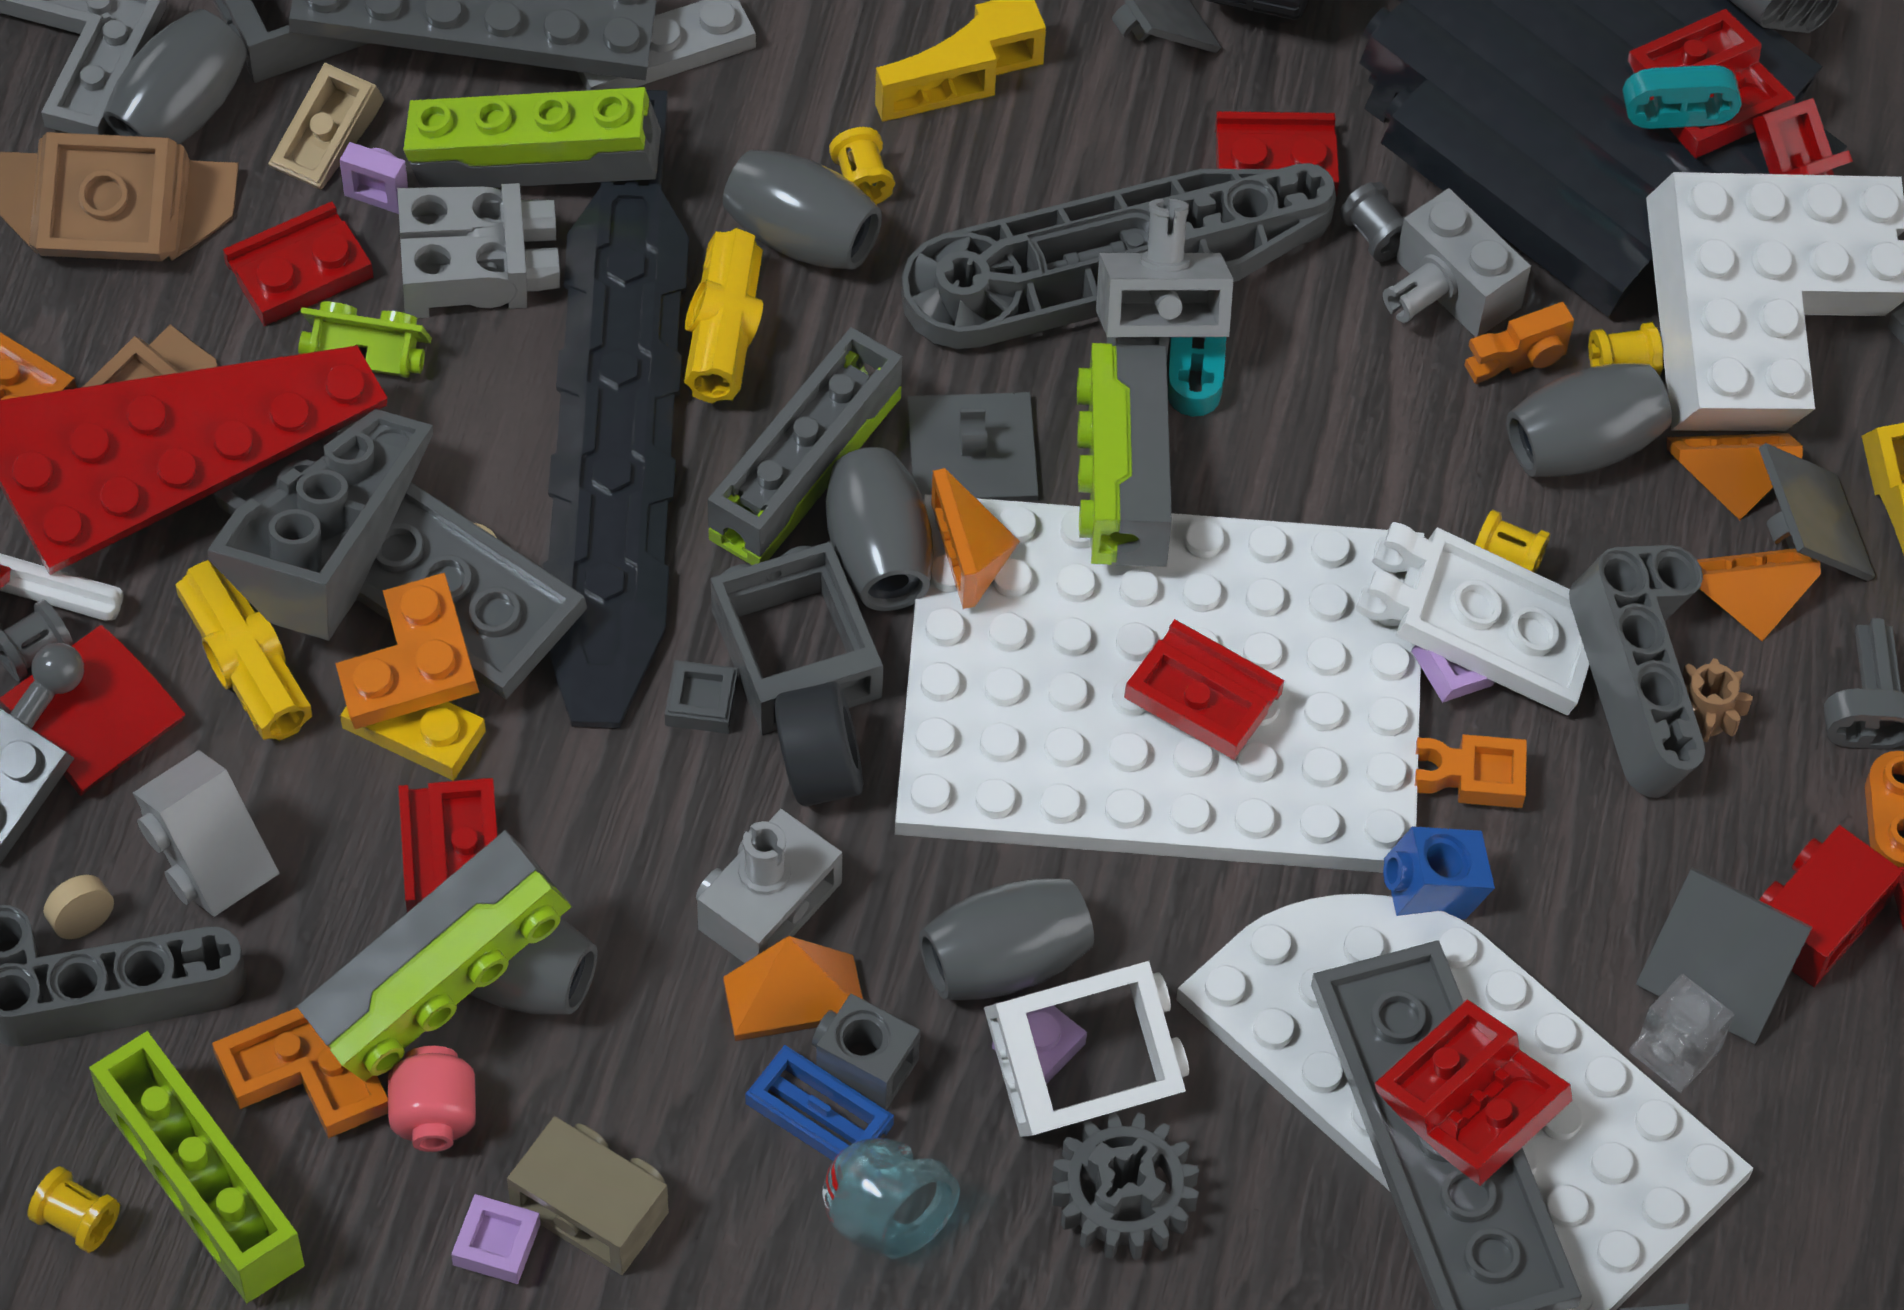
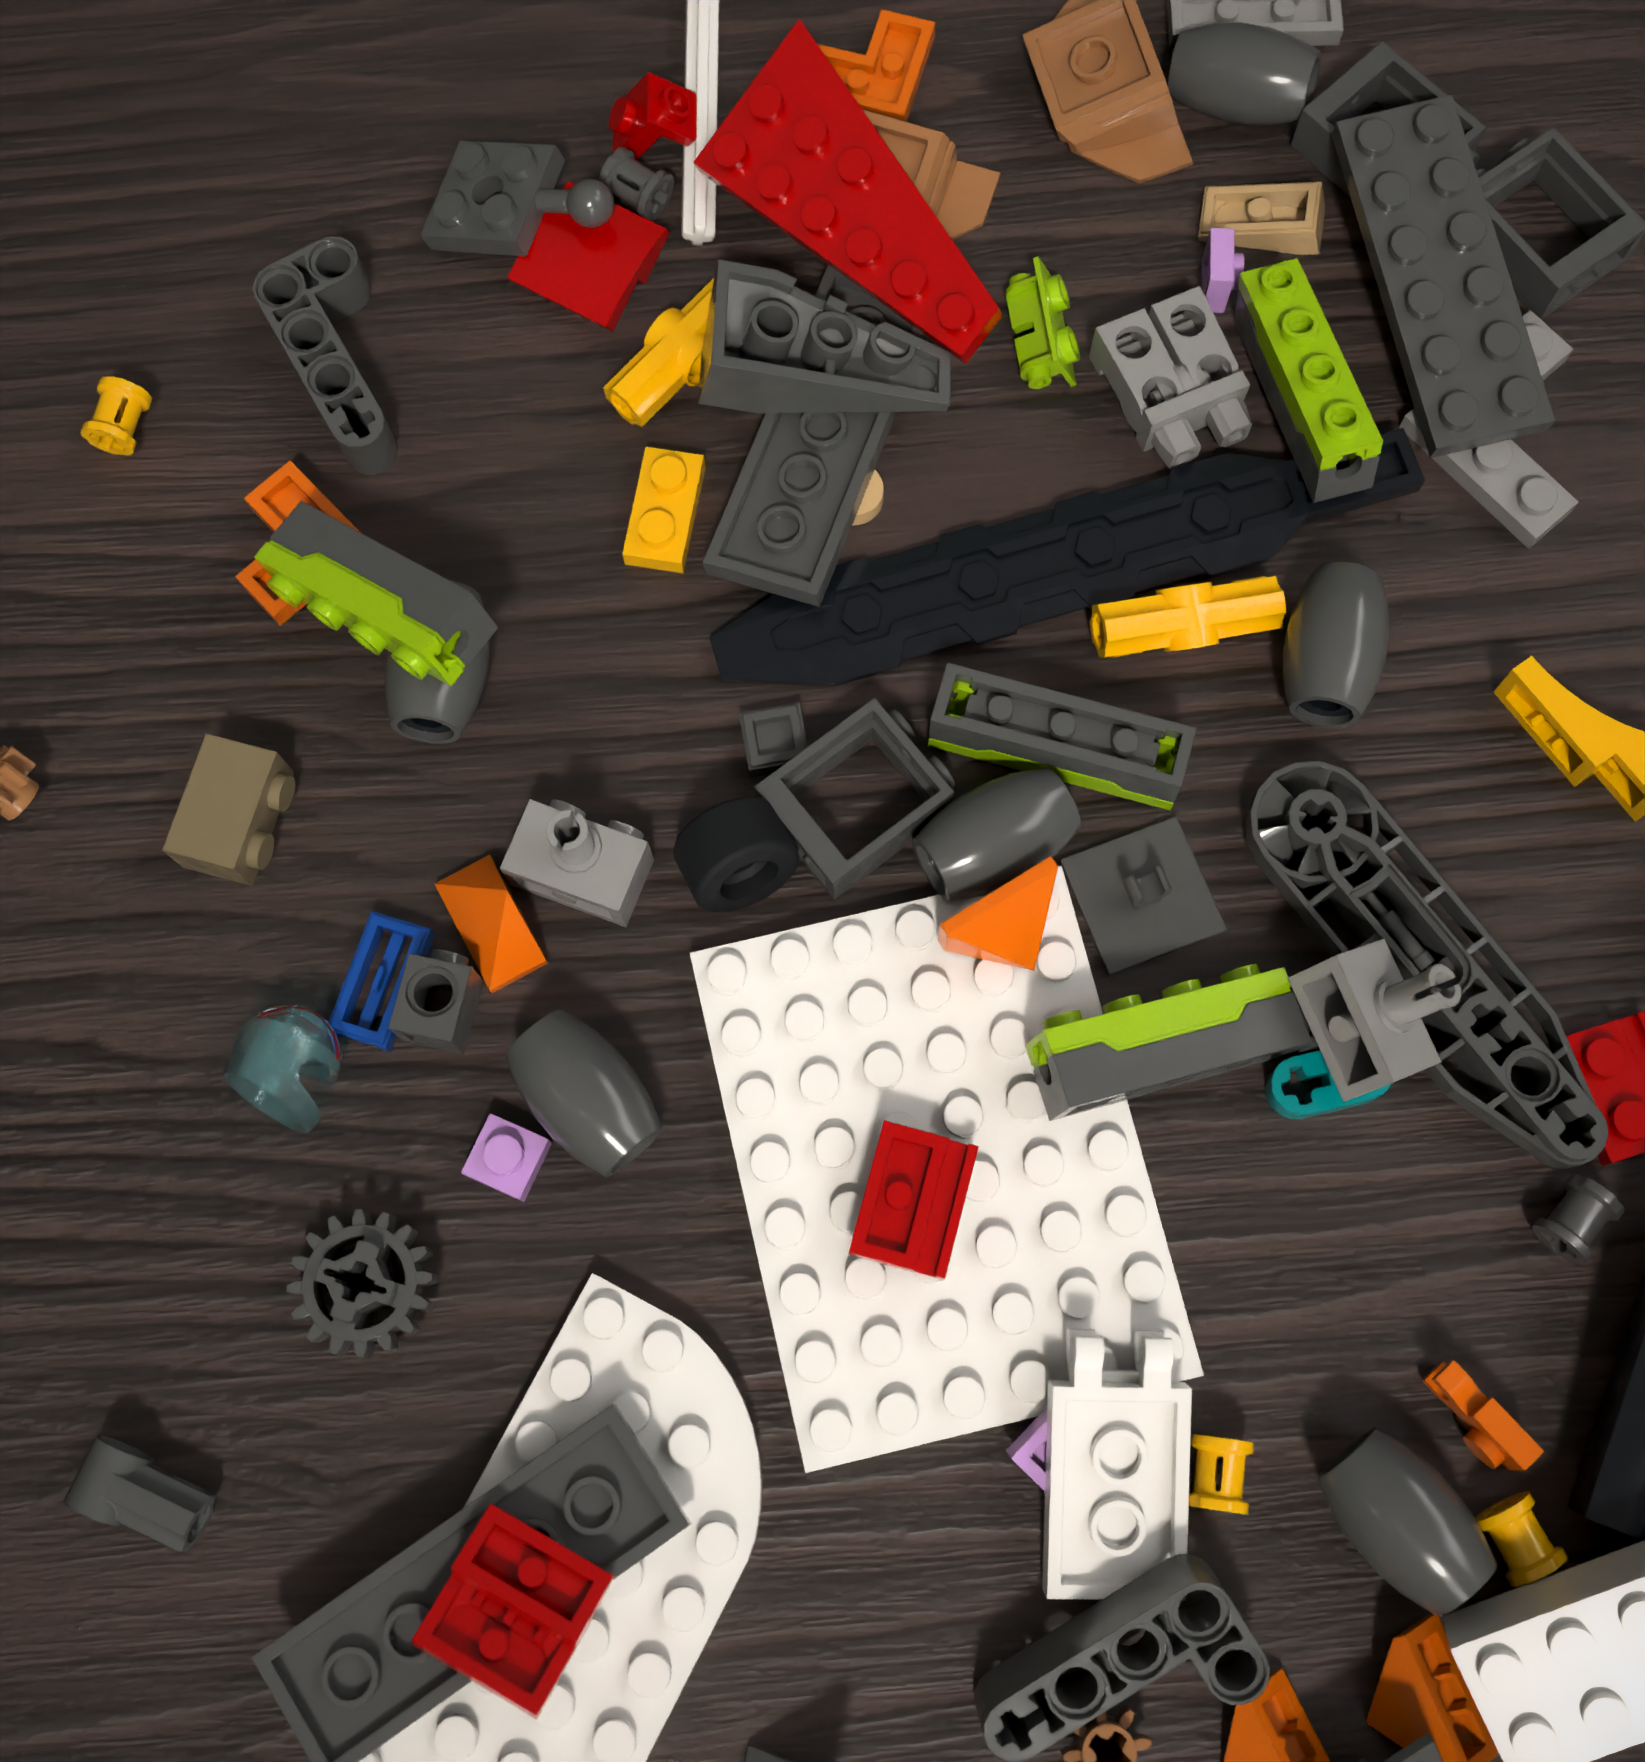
camera: 80 degrees right, 15 degrees up
(78, 906) = (393, 314): tan tile -> none
(197, 1167) = (161, 488): lime brick -> none
(204, 834) = (467, 373): light grey brick -> none
(298, 263) = (1107, 248): red plate -> none
(424, 667) = (709, 490): orange plate -> none
(431, 1098) = (282, 649): coral head -> none
(443, 831) = (544, 580): red plate -> none
(496, 1239) = (169, 748): lavender plate -> none
(863, 163) = (1420, 686): yellow bush -> none
(1022, 1065) = (521, 1171): white window -> none
(1438, 871) = (795, 1528): blue brick -> none
(1458, 264) = (1553, 1321): light grey brick -> none
(1482, 769) = (937, 1516): orange plate -> none

